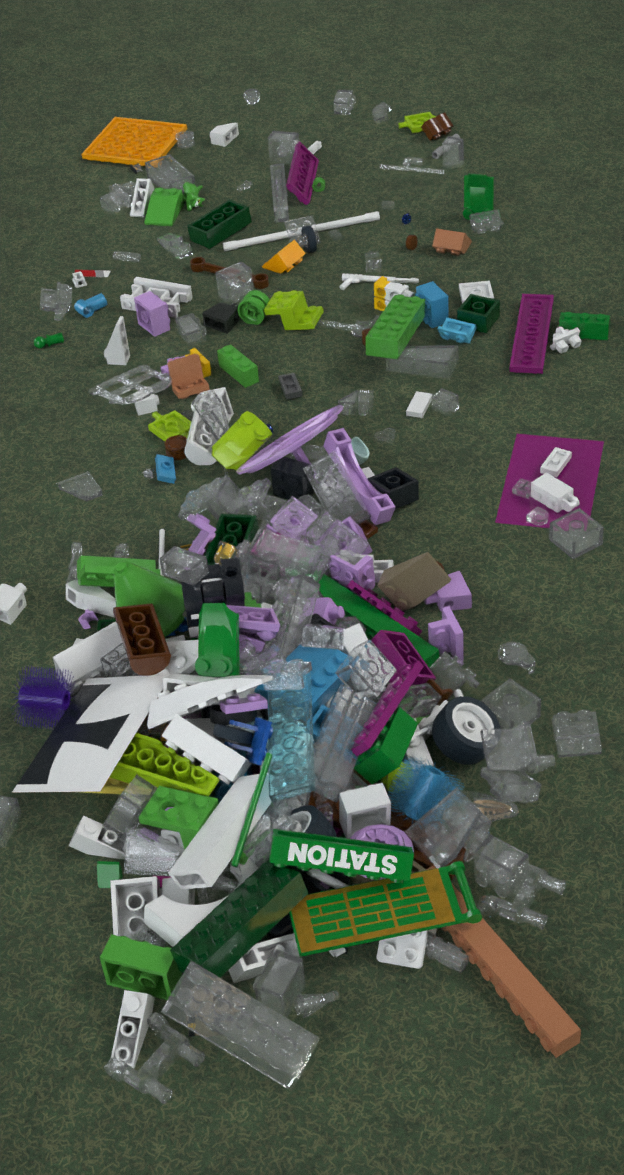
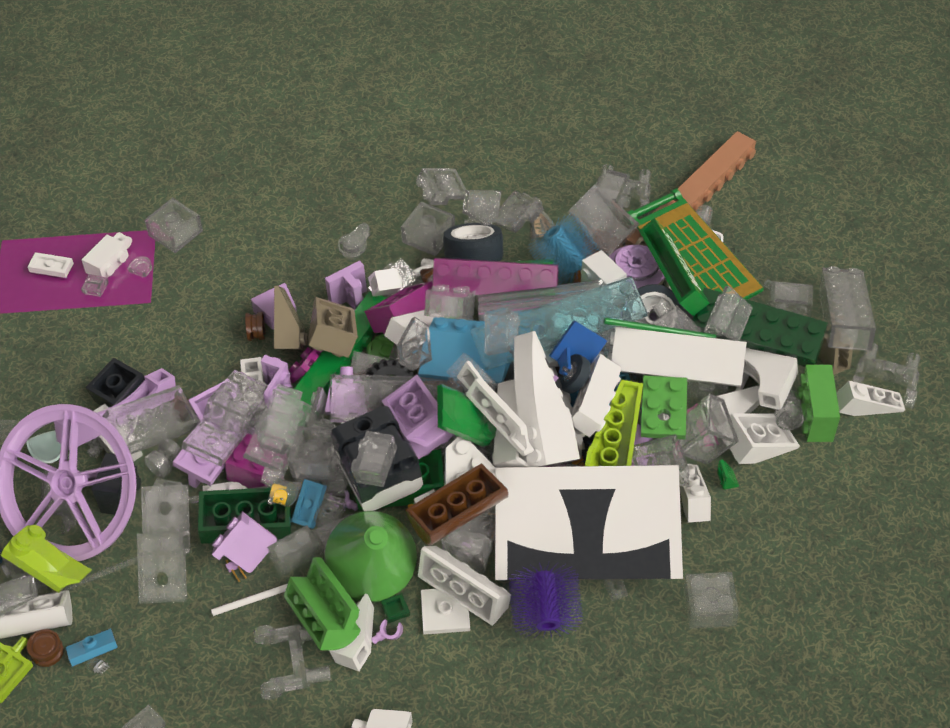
camera: 110 degrees left, 10 degrees up
(210, 658) = (495, 409): none -> white wedge
(244, 871) = (729, 315): none -> clear bracket
(391, 606) = (332, 328): none -> dark tan slope
(434, 651) = (385, 282): none -> white brick

